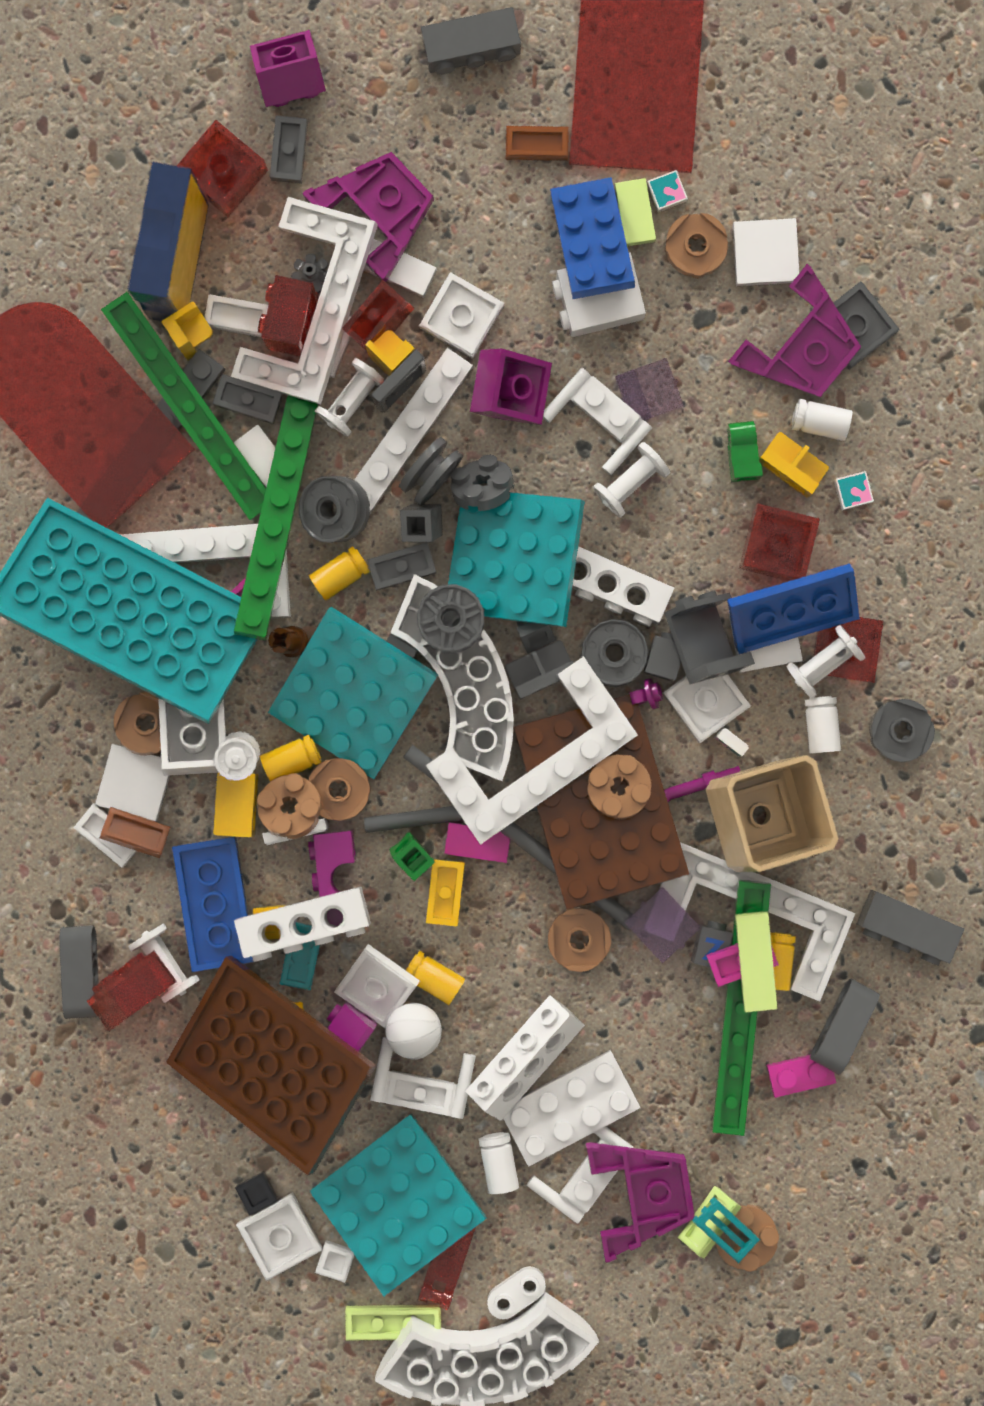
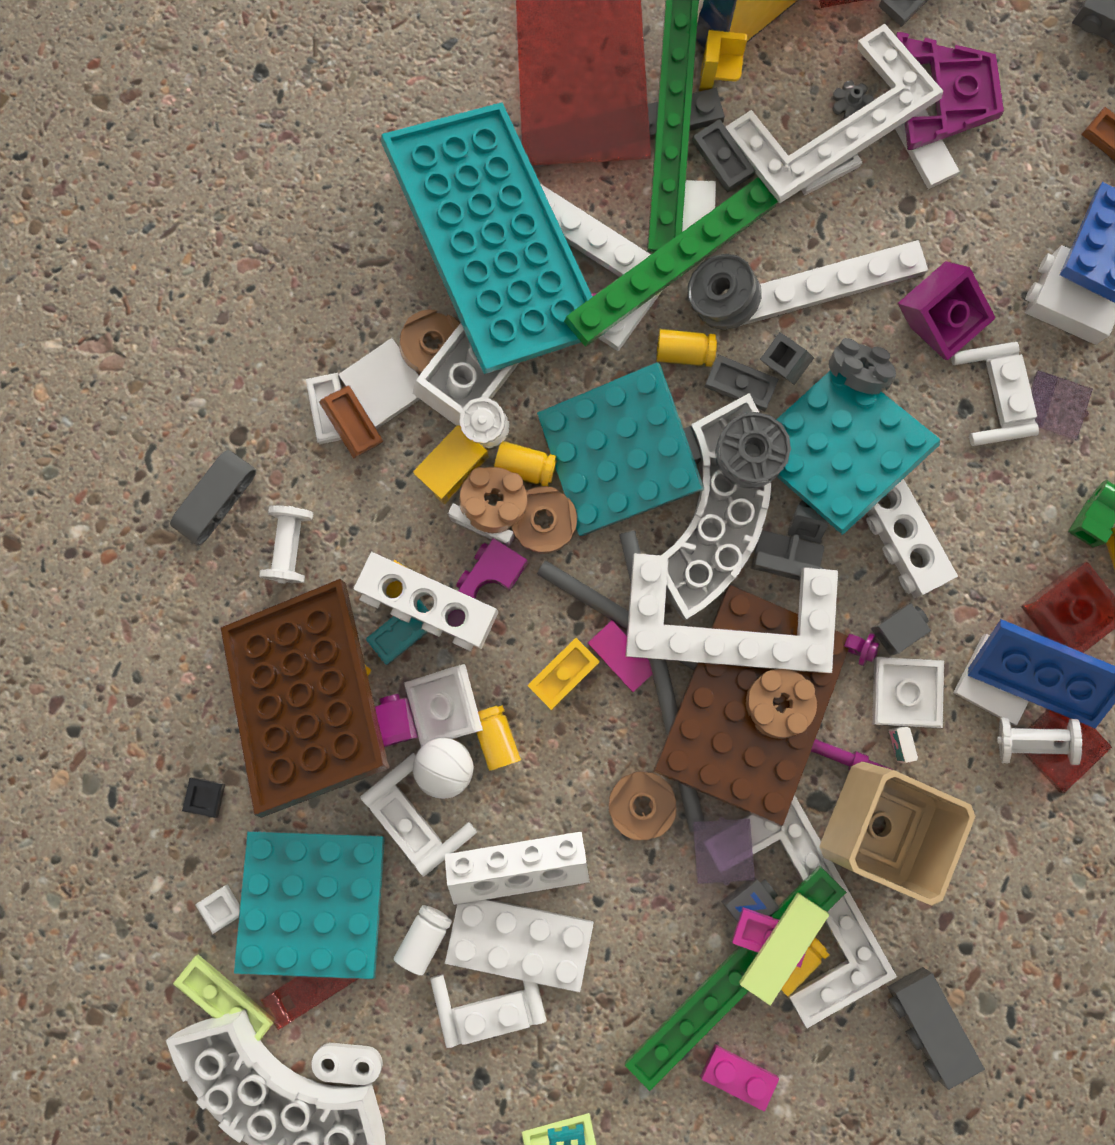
camera: 40 degrees right, 5 degrees down
(130, 989) = (240, 541): clear red brick -> none
(211, 900) = (367, 522): blue plate -> none
(234, 315) = (767, 88): white tile -> none
(279, 1236) = (192, 849): white tile -> none
(288, 315) = (812, 109): clear red brick -> none
(288, 641) = (600, 367): reddish brown bush -> none
(351, 397) = (809, 217): white hose -> none
(380, 312) = (885, 168): clear red slope -> none
(389, 351) = (870, 208): yellow panel -> none
(399, 381) = (860, 232): dark grey tile -> none
(411, 856) = (560, 621): green leg -> none
(430, 471) = (828, 322): dark grey wheel -> none
(461, 315) = (949, 225): white tile -> none
(624, 636) = (882, 591): dark grey wheel -> none
(631, 479) = (1014, 460): white hose -> none
(656, 1193) = (535, 1076): magenta wing -> none
(702, 638) = (947, 637): dark grey panel -> none
(822, 724) = (994, 792): white piece -> none
(845, 1026) = (811, 1068): dark grey beam -> none
(885, 739) = (1036, 851): dark grey plate -> none

